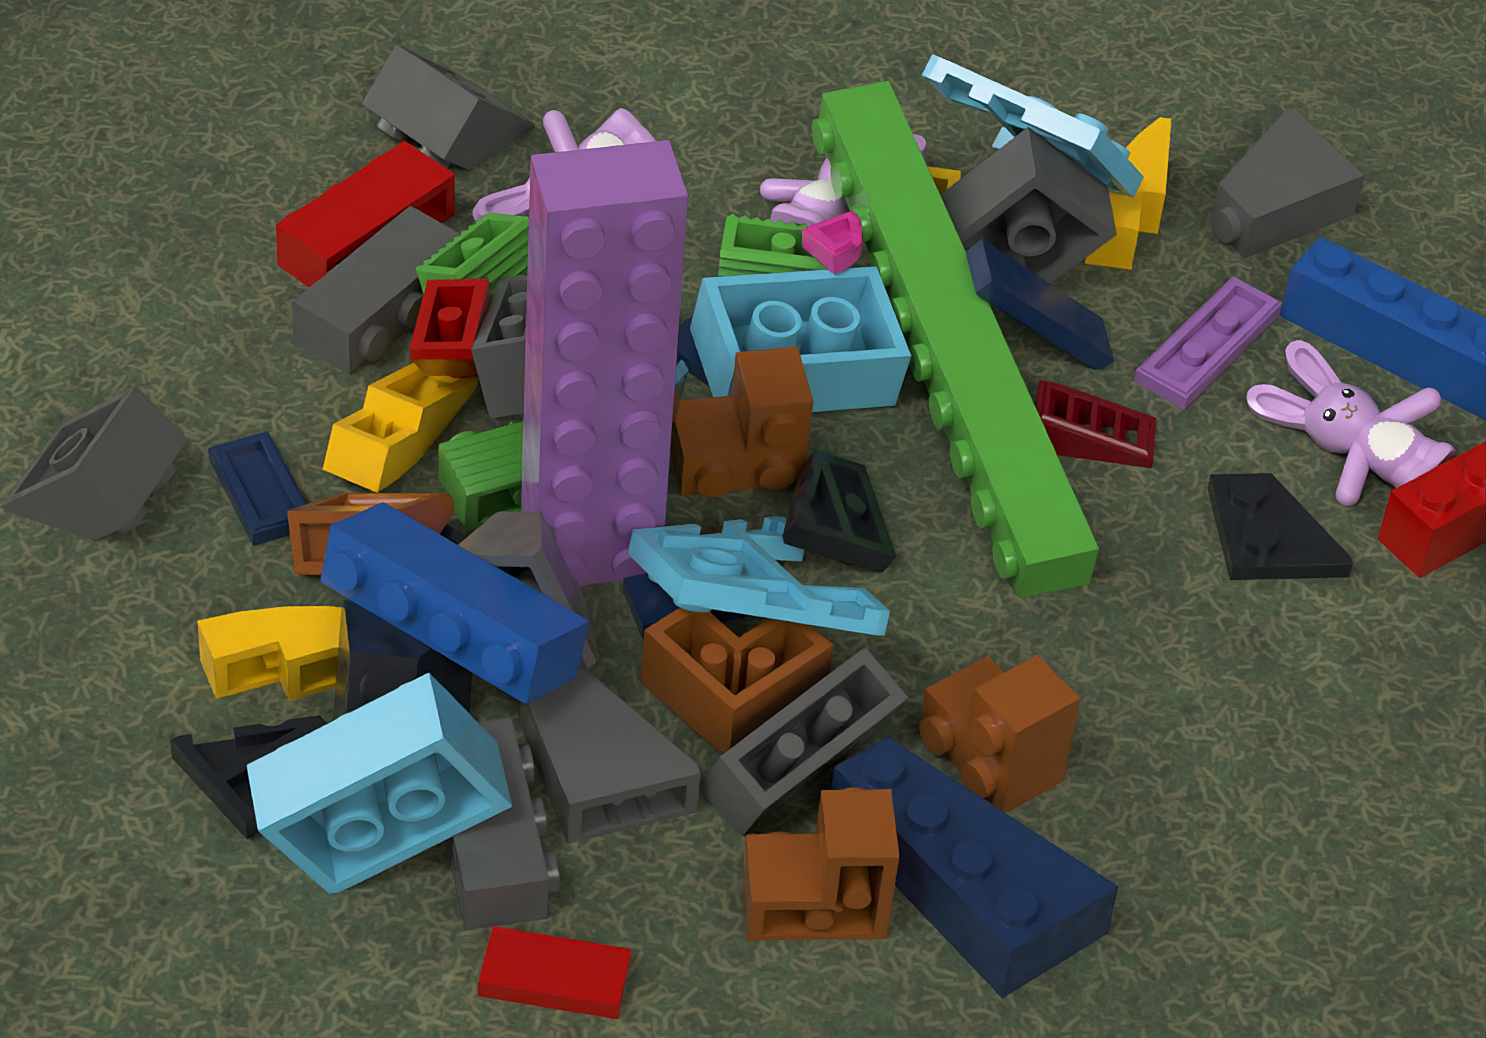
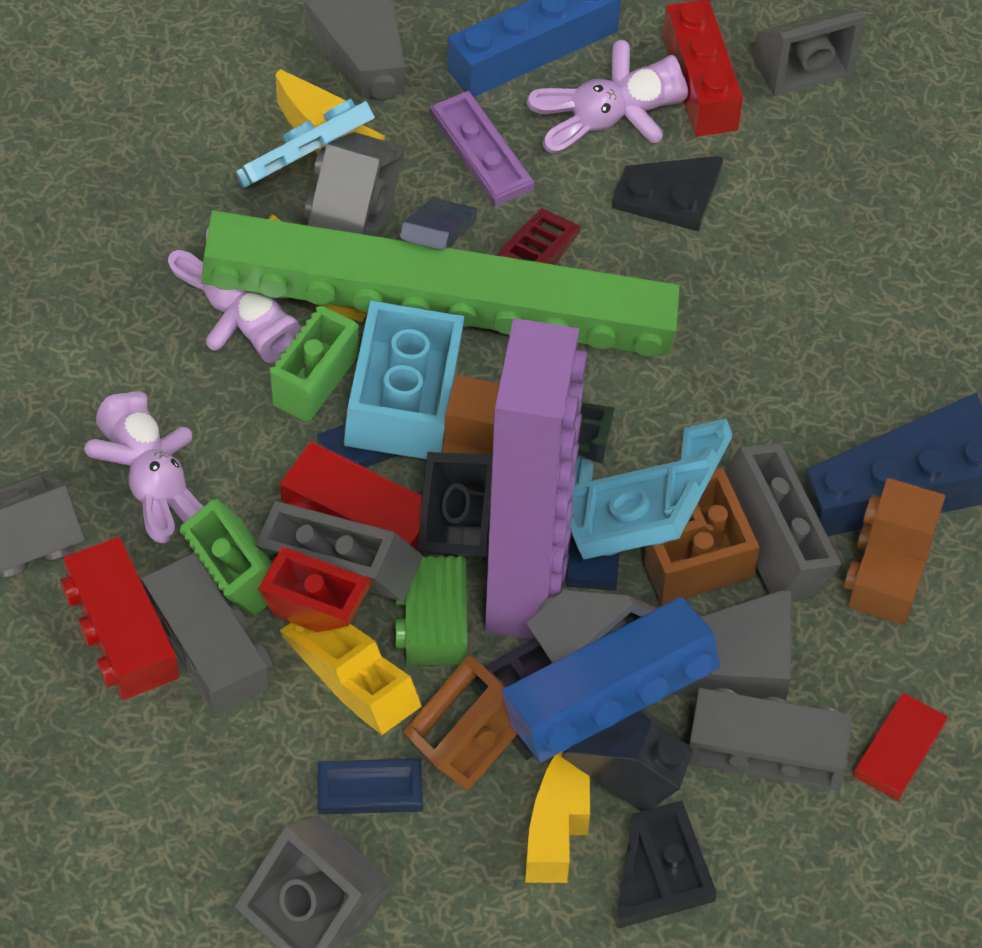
camera: 65 degrees left, 10 degrees up
(378, 785) = (757, 785): medium azure brick -> none
(835, 241) = (341, 313): dark pink tile -> none
(1002, 728) = (813, 407): dark orange brick -> none

